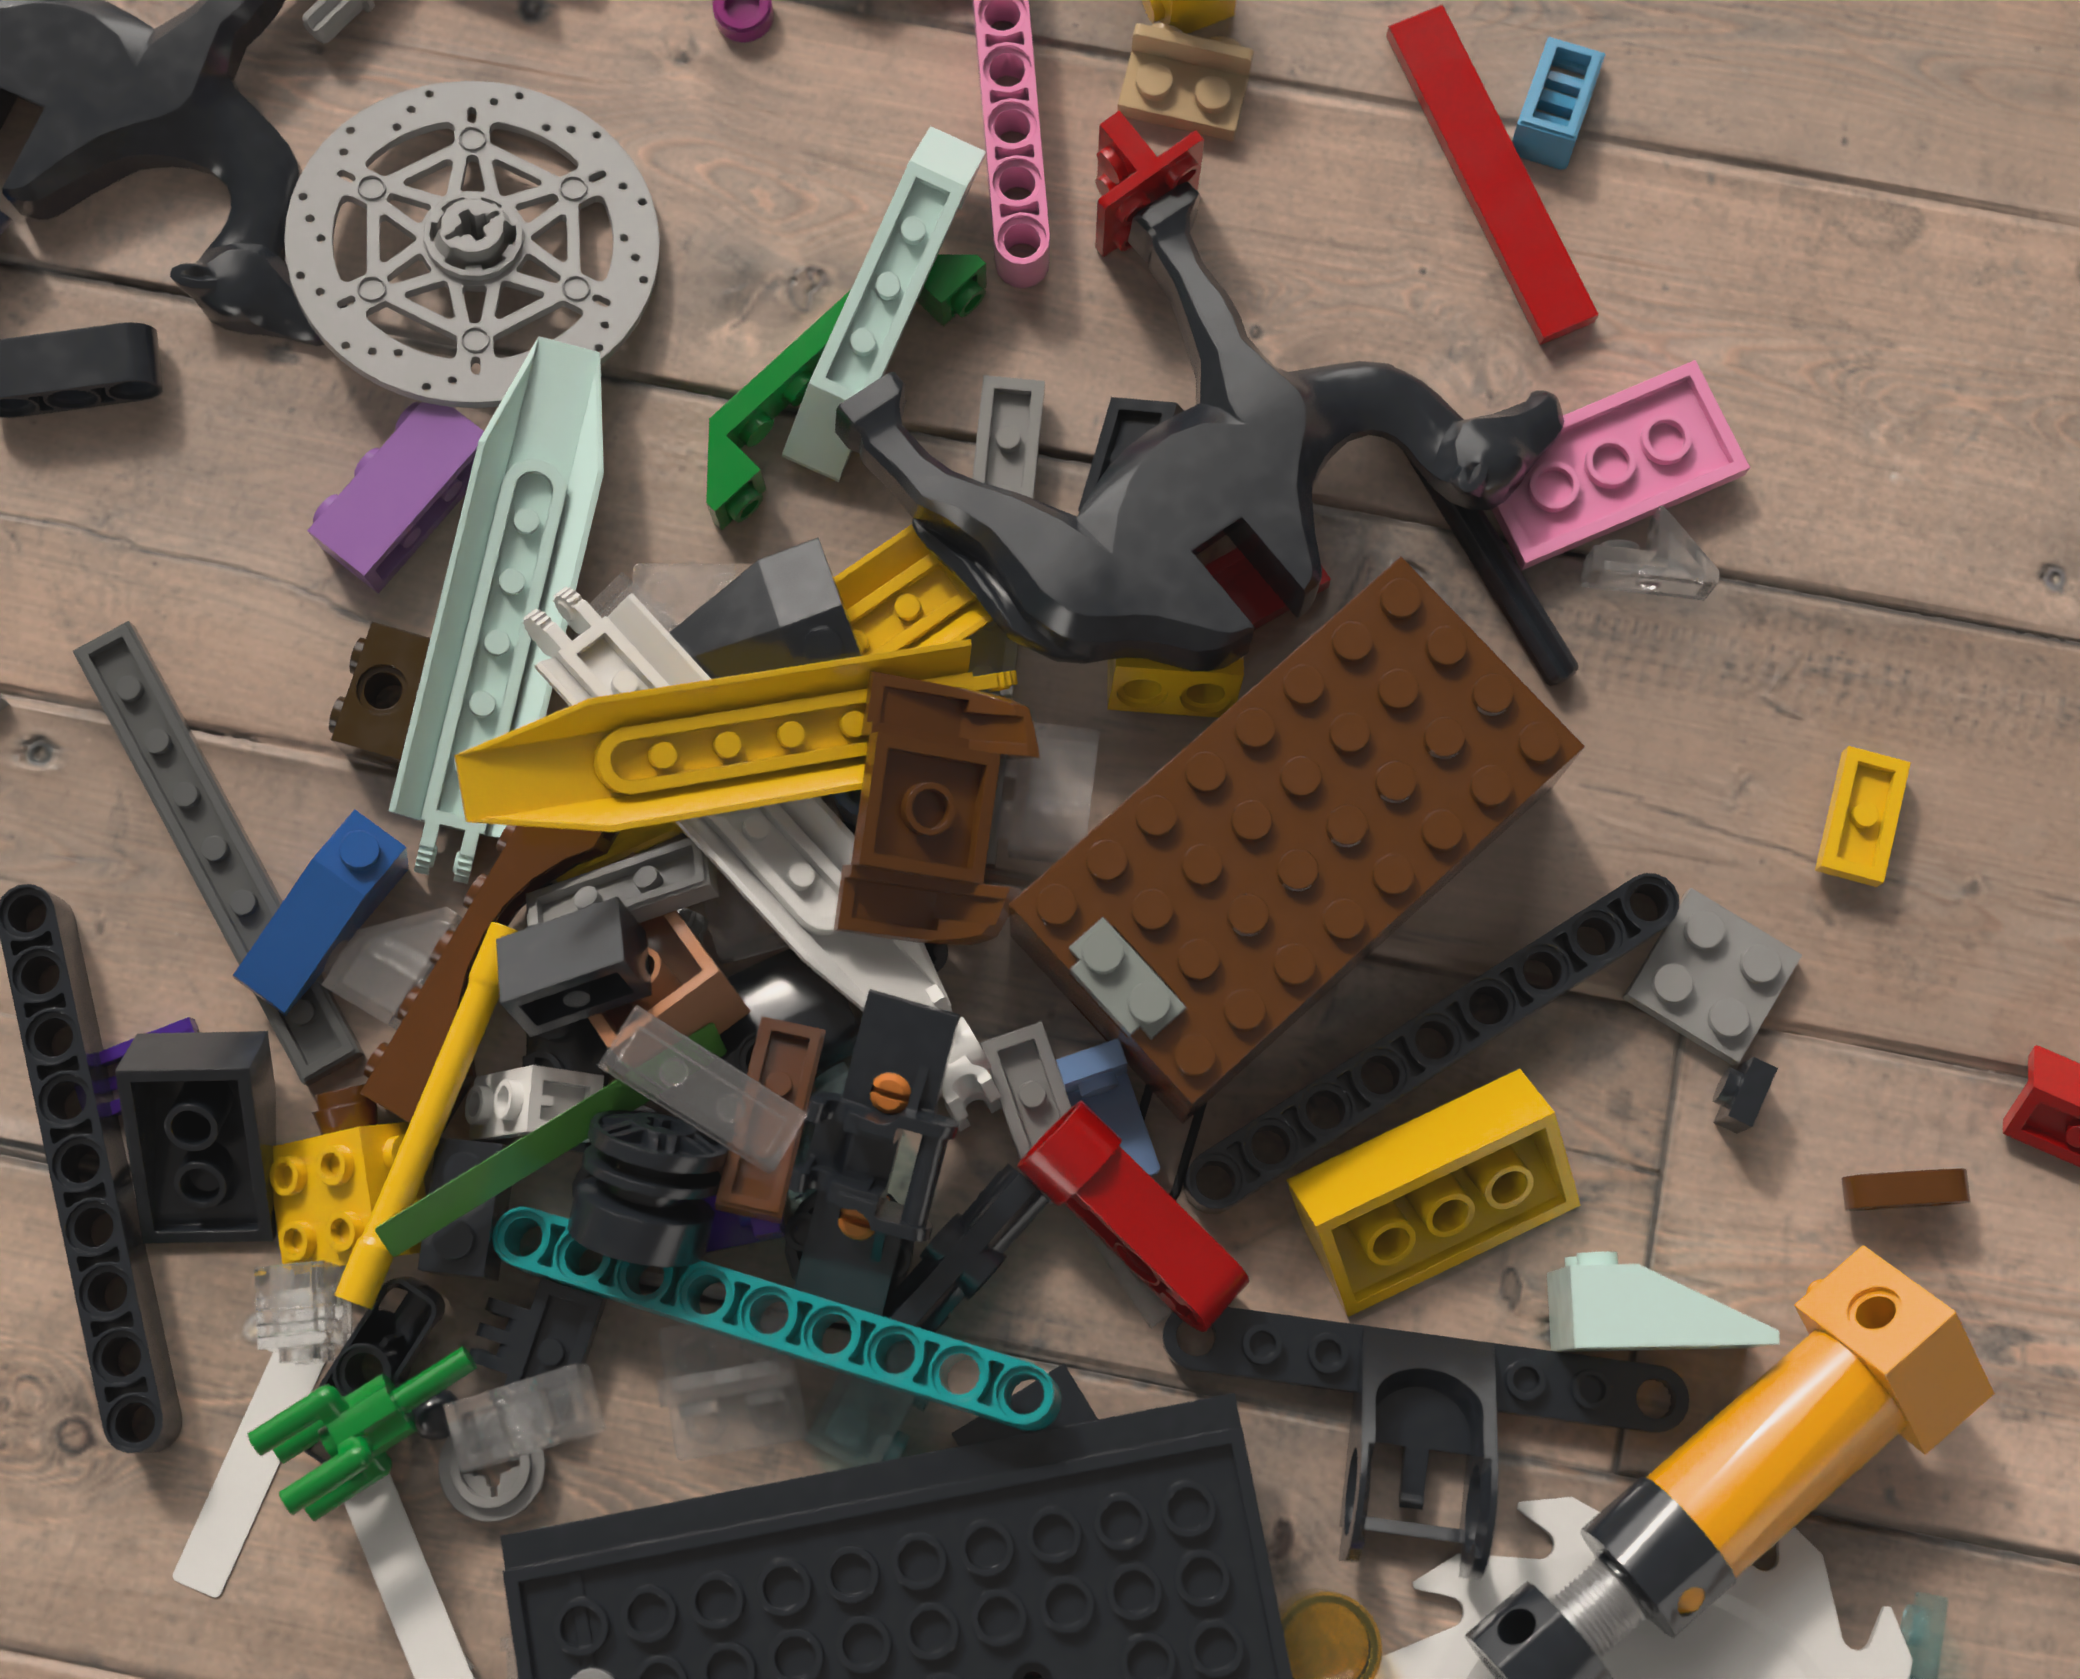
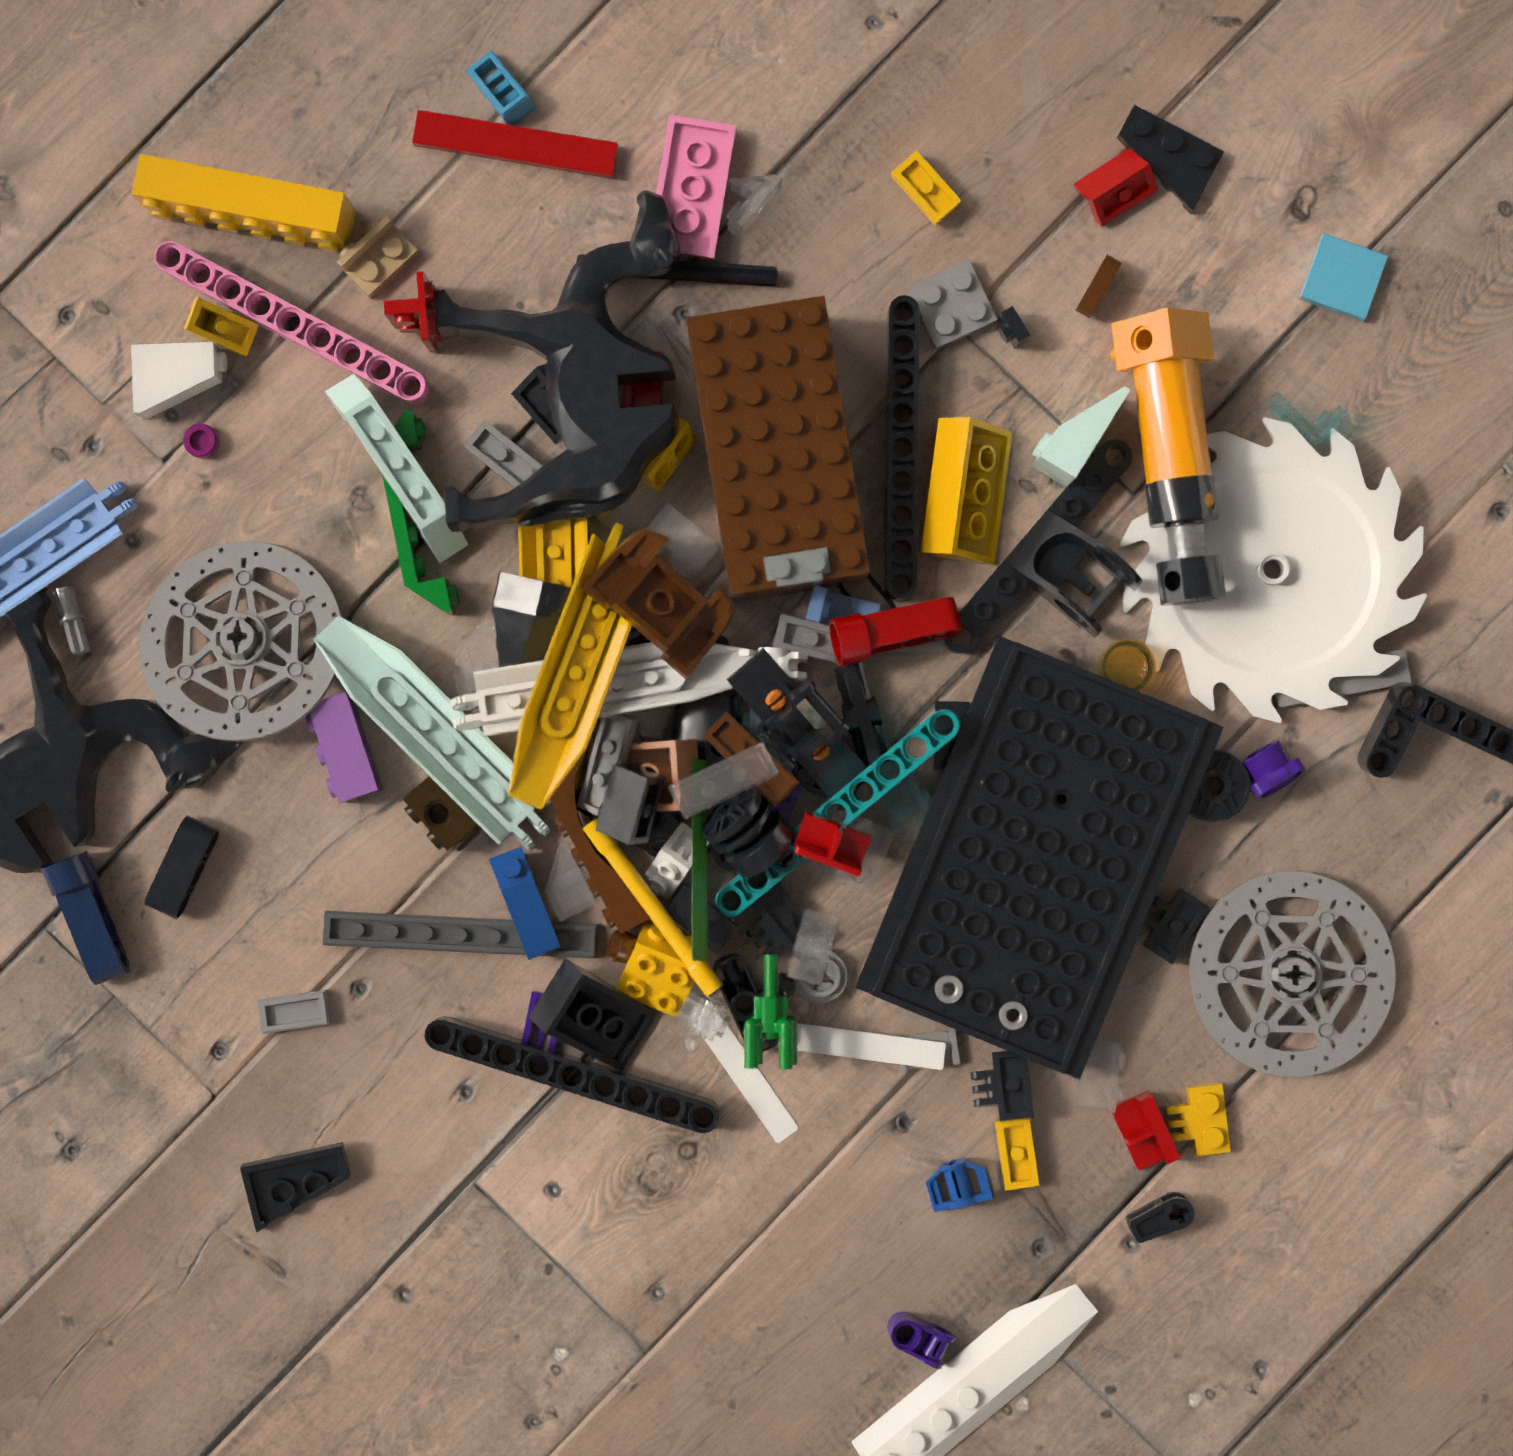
camera: 60 degrees left, 10 degrees up
(709, 1337) = (831, 843): none -> red panel

